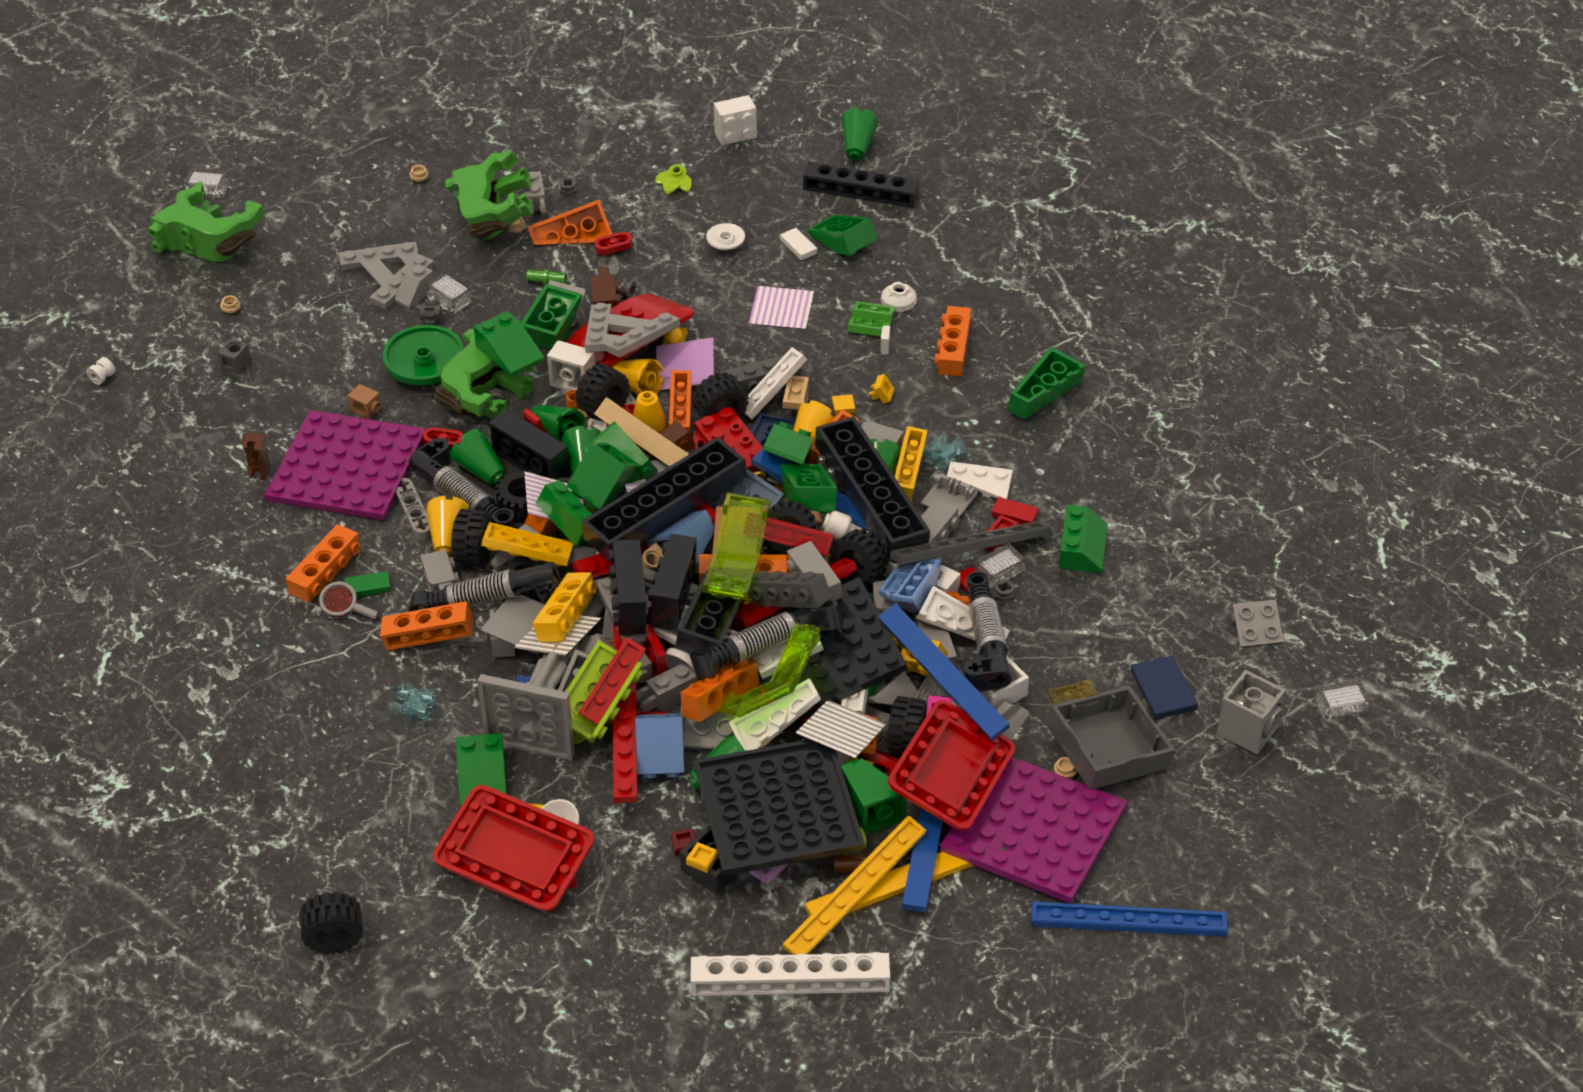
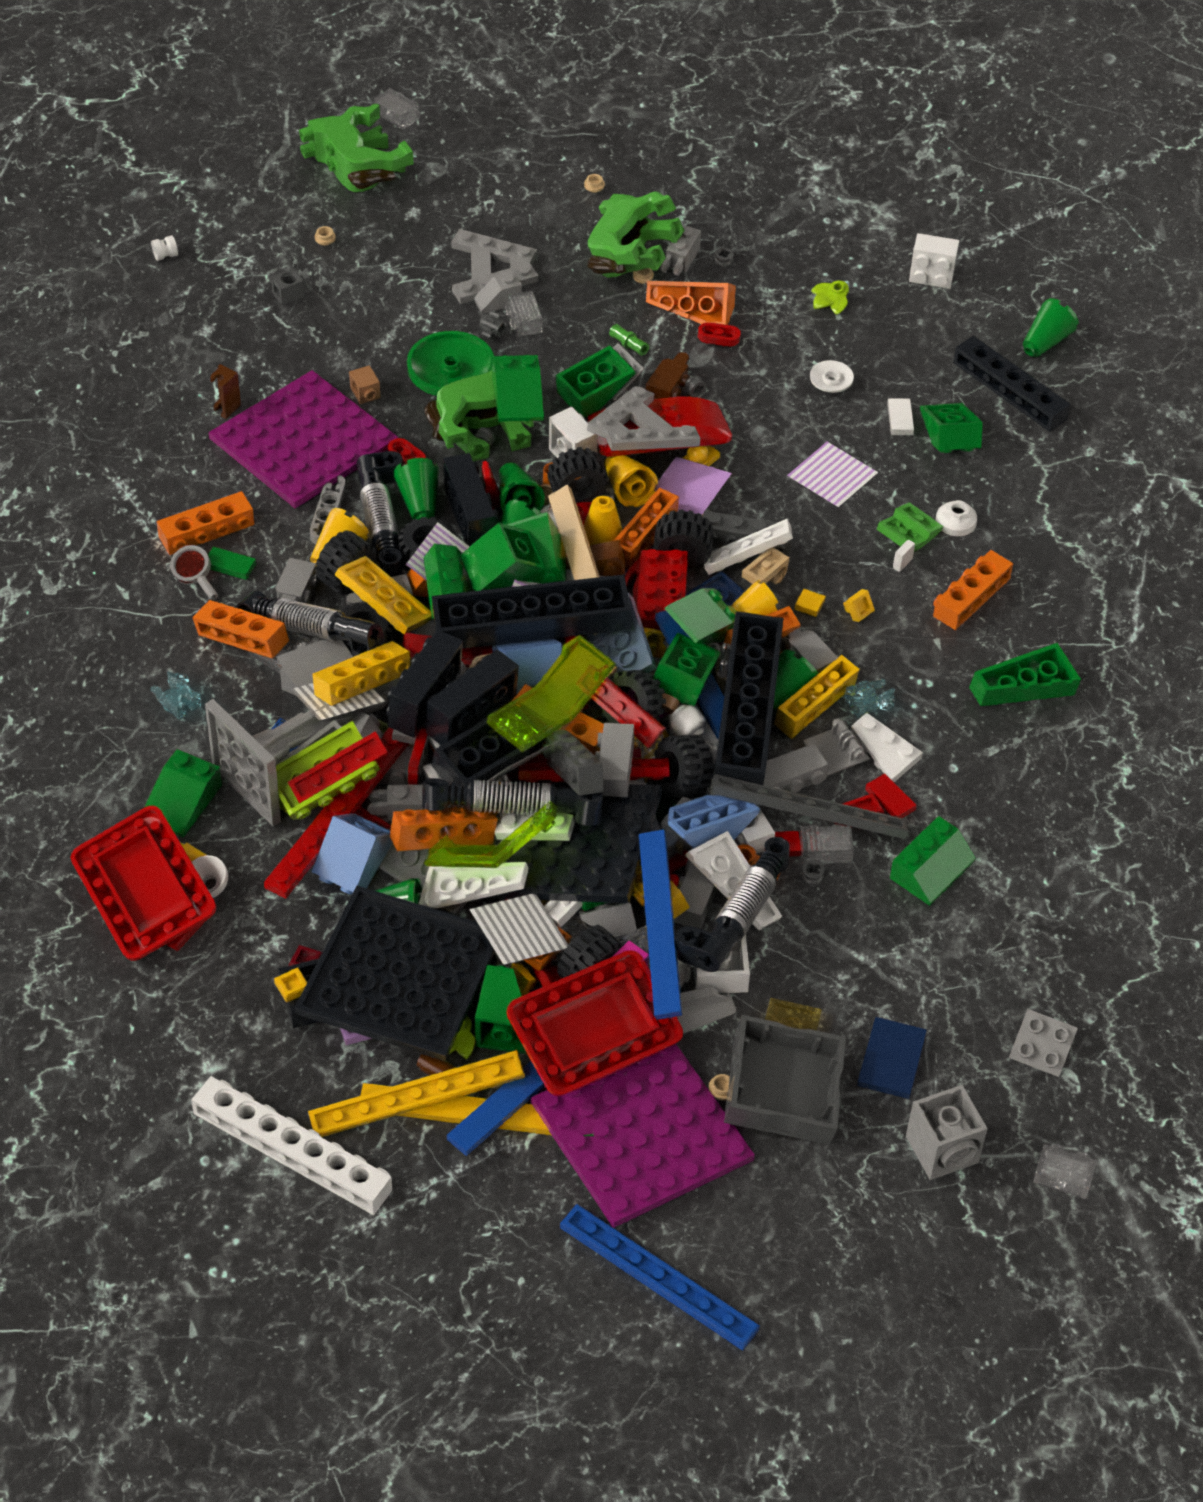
camera: 30 degrees right, 5 degrees up
(750, 608) = (521, 762): none -> sticker

